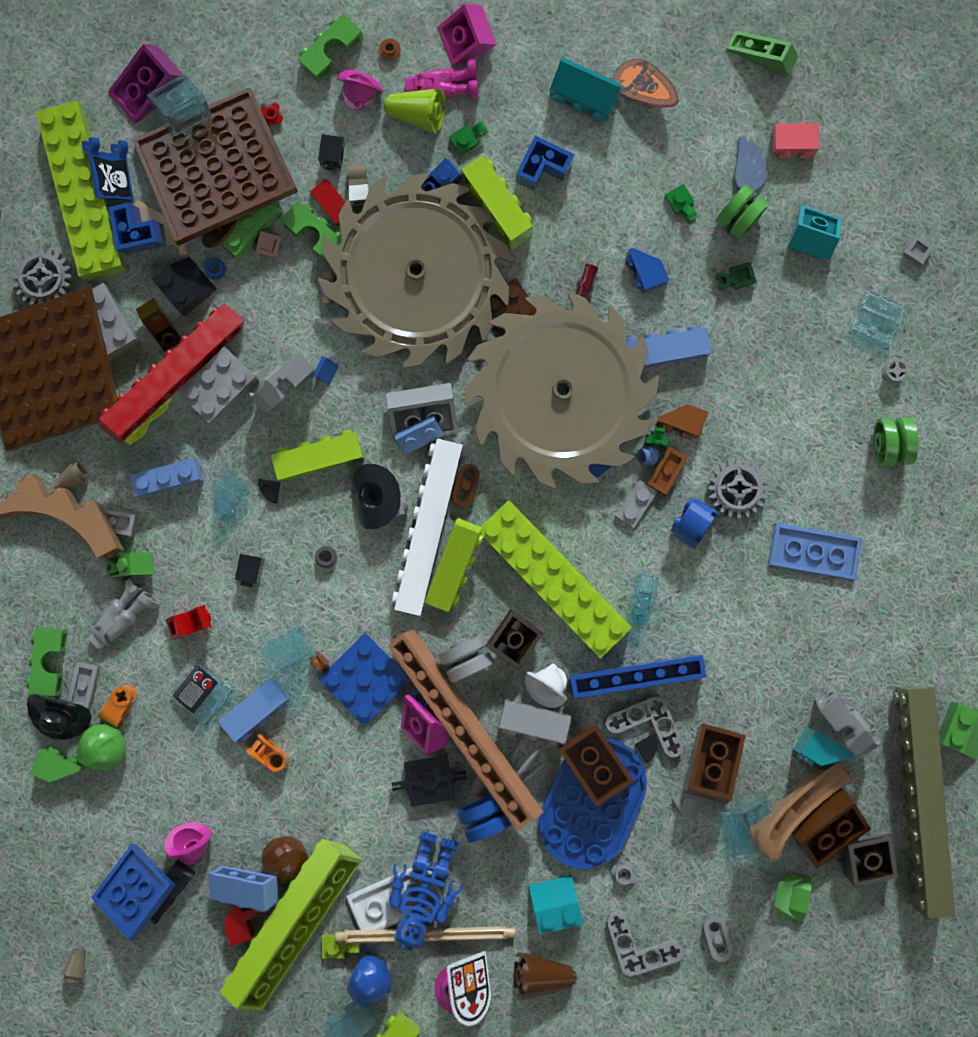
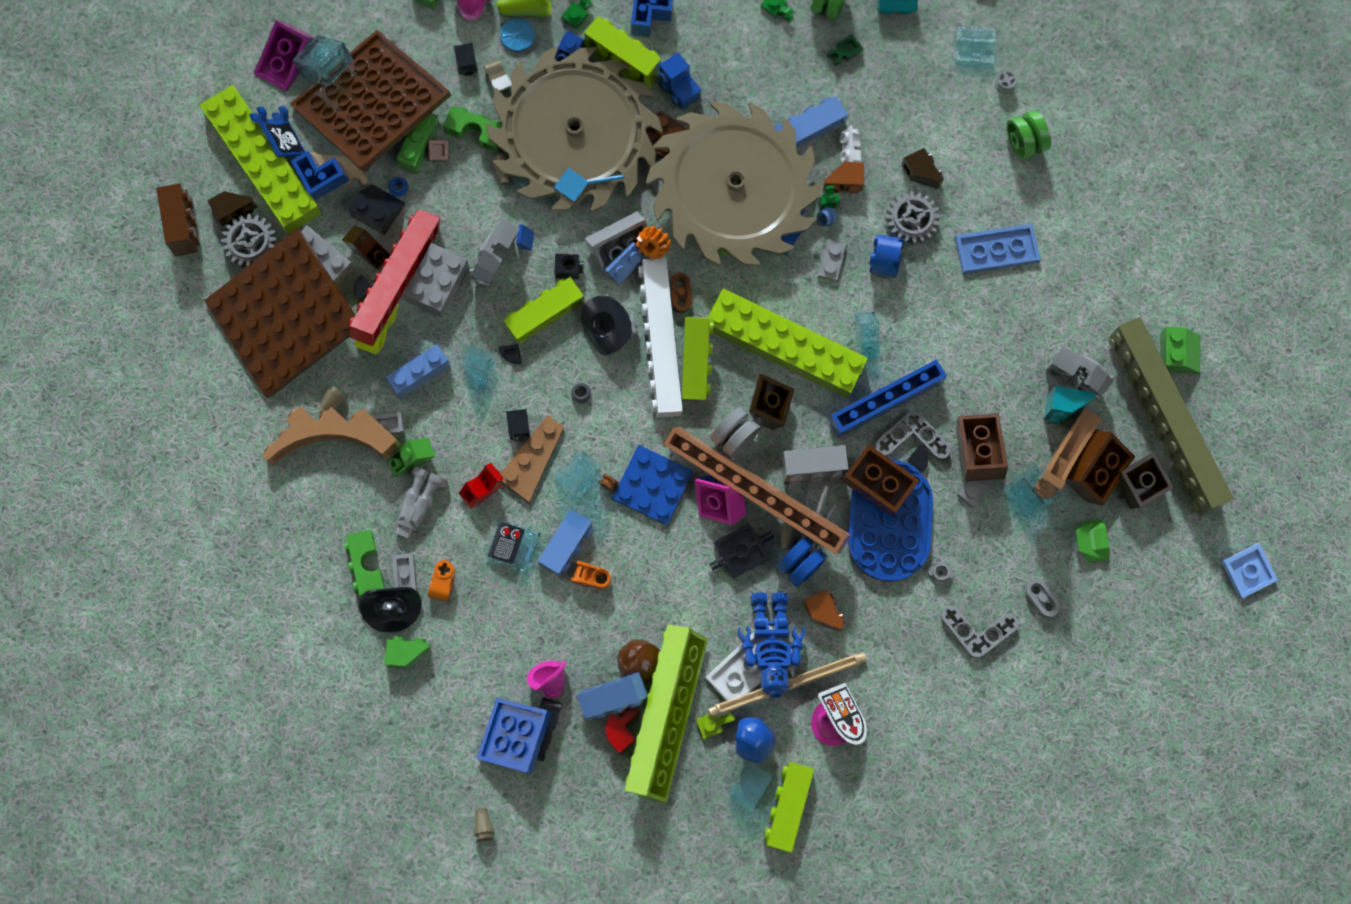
camera: 25 degrees left, 10 degrees down
(33, 233) = (230, 206): none -> dark brown slope
(101, 748) = (441, 621): bright green piece -> none
(140, 366) = (360, 287): none -> black tile
(218, 235) = (392, 155): reddish brown piece -> none
(248, 612) = (529, 463): none -> medium nougat wing
(276, 118) = (404, 41): red plate -> none
(328, 199) = (478, 100): red tile -> none
(349, 417) = (564, 259): none -> black brick
(392, 333) = (573, 184): none -> dark azure piece
(396, 142) = (517, 35): none -> dark azure wheel
(453, 426) = (653, 242): none -> orange gear
(488, 873) = (823, 611): none -> dark orange slope
(541, 976) = (901, 683): reddish brown cone -> none
(544, 250) = (676, 79): none -> blue brick
(547, 686) = (812, 433): white helmet -> none
(555, 904) = (892, 618): teal slope -> none
(587, 279) = (721, 91): dark red pin -> none
(647, 269) = (768, 67): blue slope -> none
(667, 470) = (847, 223): dark orange plate -> none
(703, 378) = (850, 138): none -> white hinge
(767, 437) = (922, 170): none -> dark brown slope
(942, 986) = (1249, 570): none -> light blue plate

